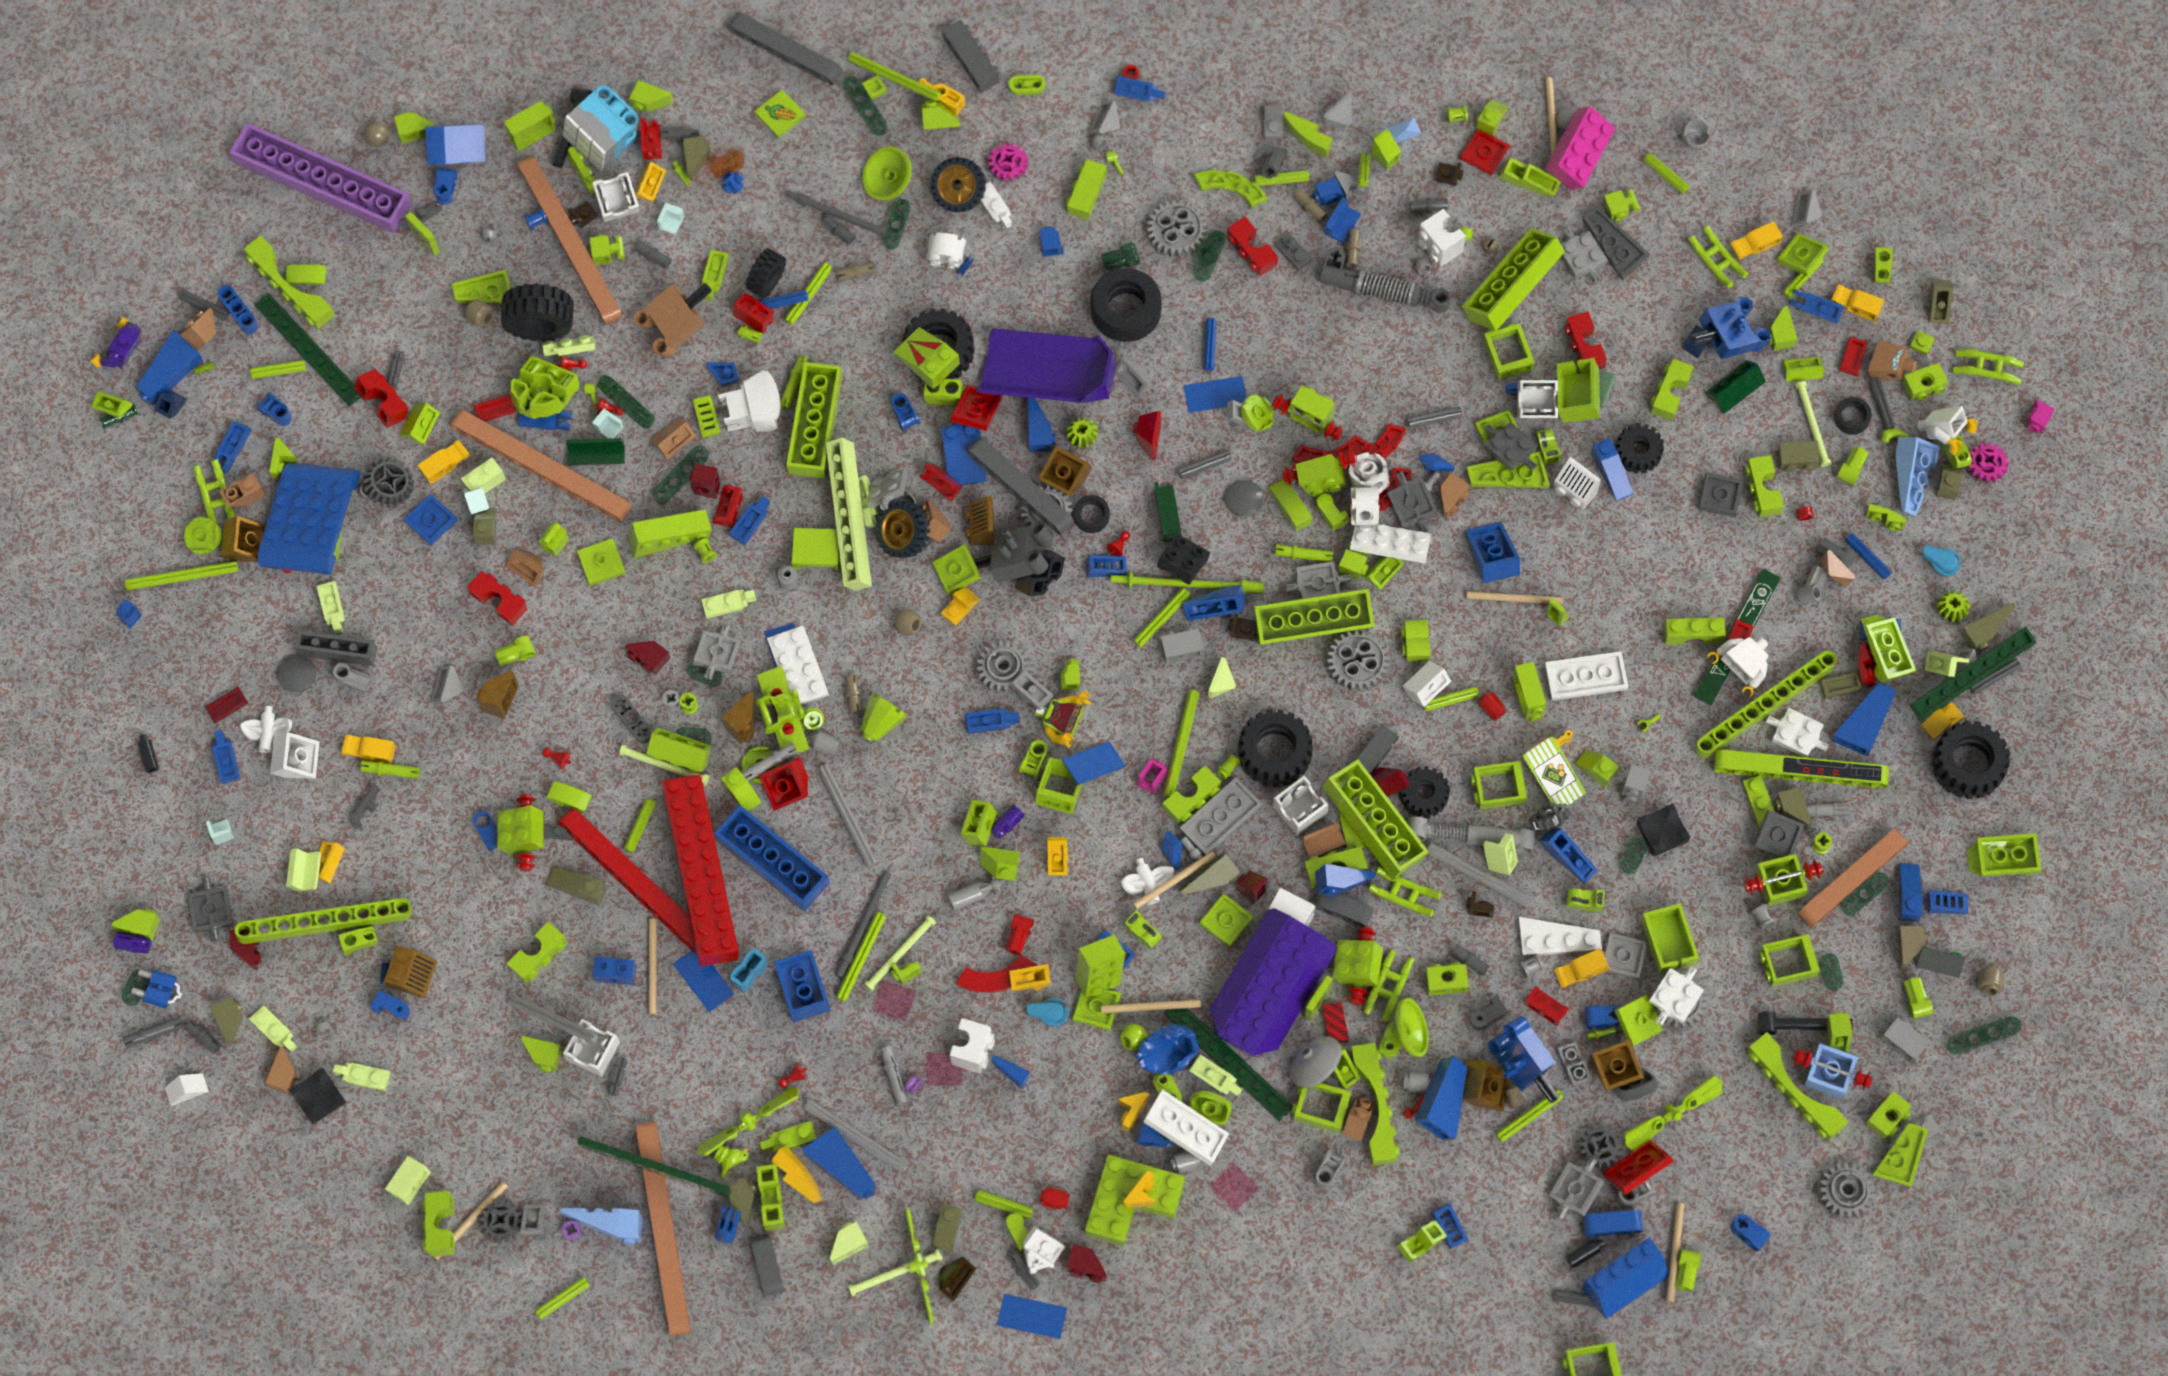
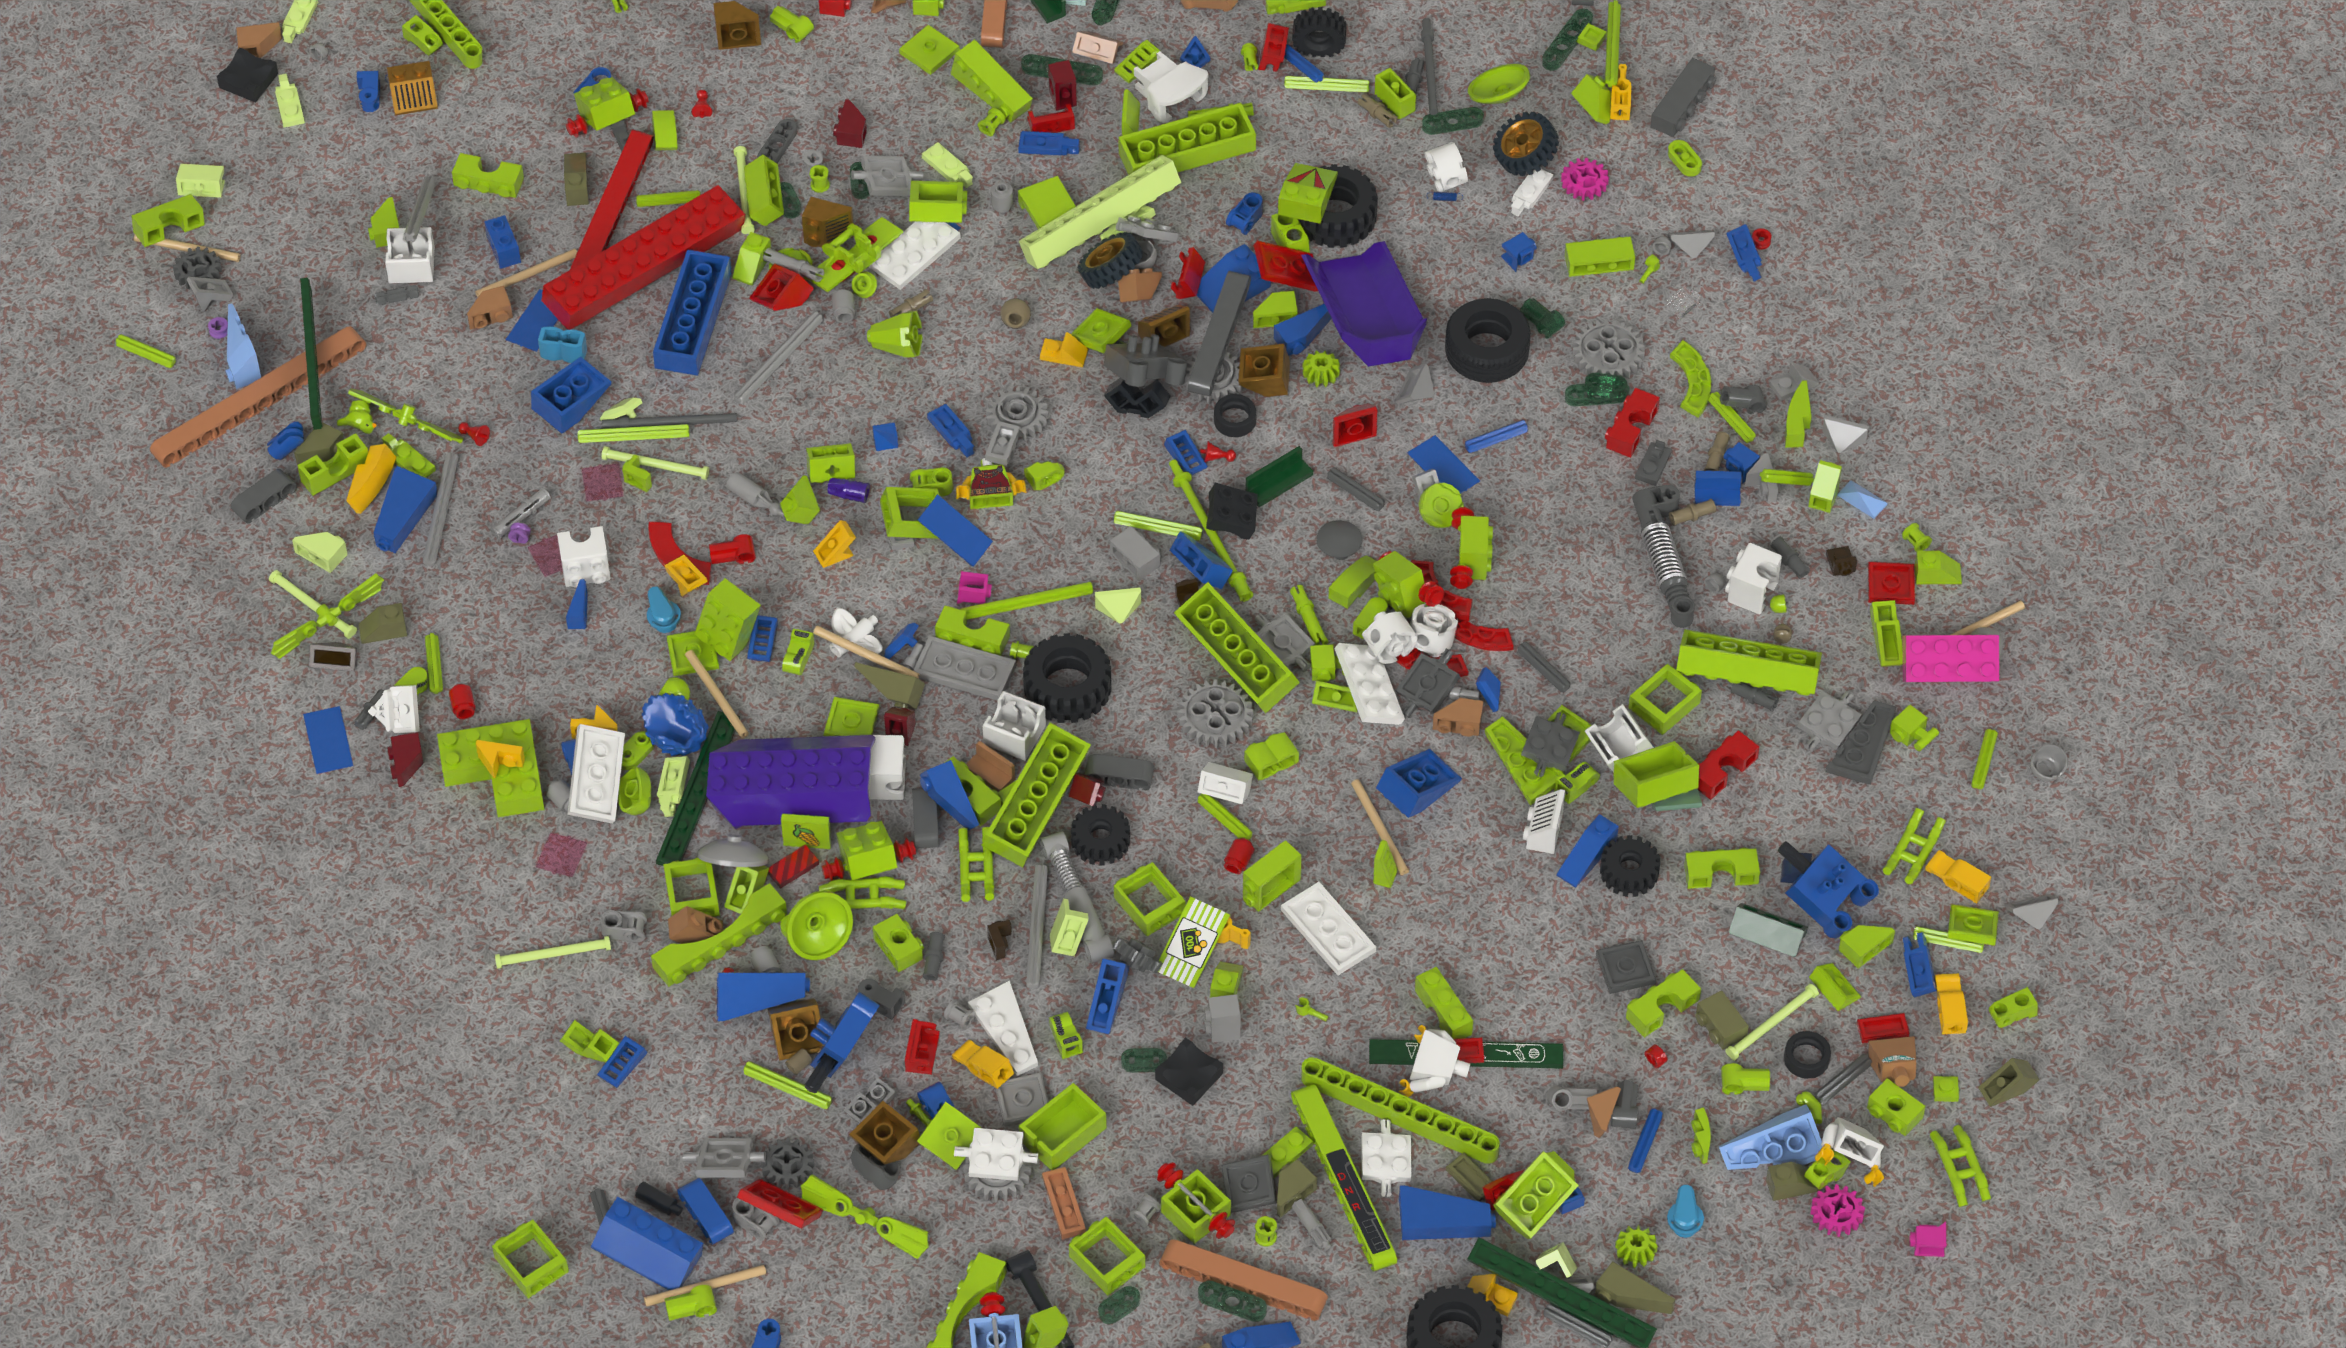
camera: 60 degrees right, 15 degrees down
(675, 1008) = (490, 308): none -> medium nougat slope
(756, 448) = (1130, 113): none -> lime slope
(777, 636) = (937, 201): none -> lime window
(835, 953) = (625, 407): none -> yellowish green piece
(852, 250) = (1395, 93): none -> lime brick
(972, 772) = (885, 436): none -> blue slope
(1010, 434) = (1275, 309): none -> lime slope
(1335, 1190) = (552, 952): none -> yellowish green bar
(1539, 289) = (1755, 695): none -> dark grey pin
(1729, 969) = (1063, 1203): none -> nougat plate

